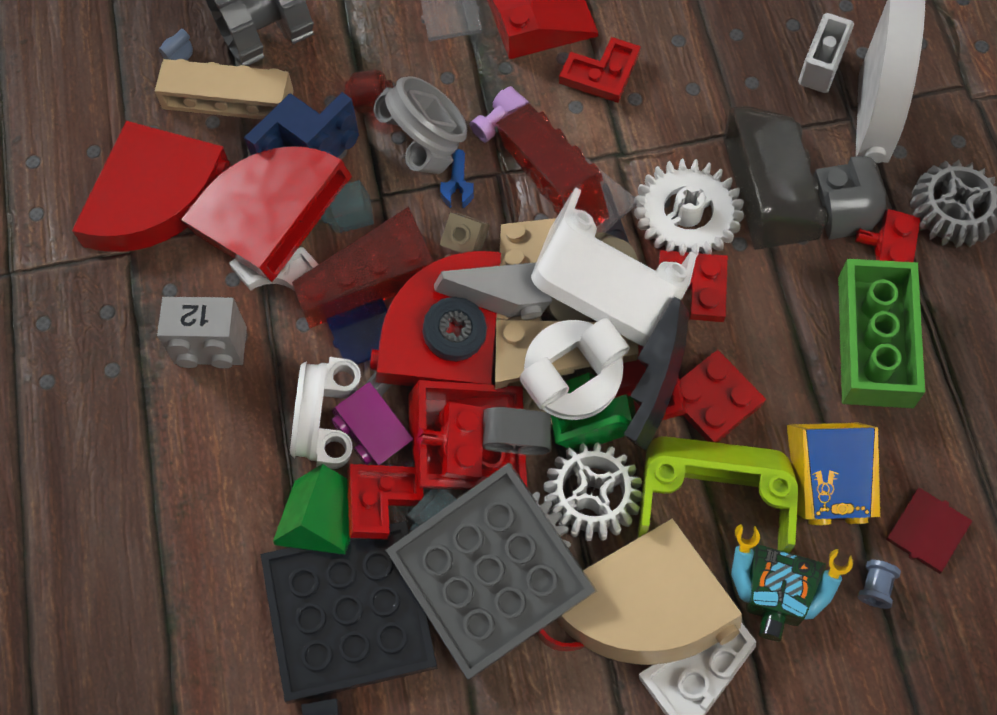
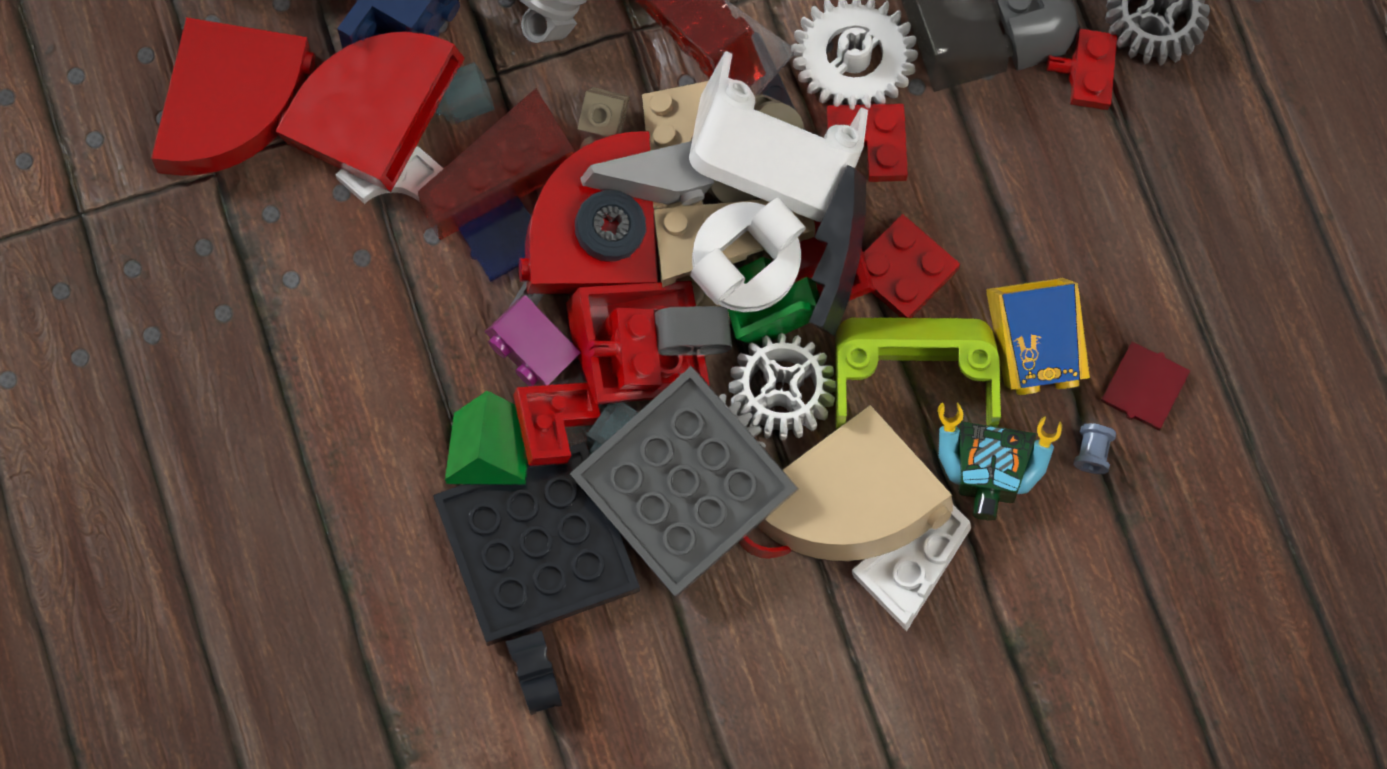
camera: 10 degrees left, 5 degrees up
(202, 331) = (326, 259): light grey brick -> none
(313, 384) = (463, 334): white piece -> none
(457, 181) = (584, 47): blue bar -> none
(880, 333) = (1078, 176): bright green brick -> none

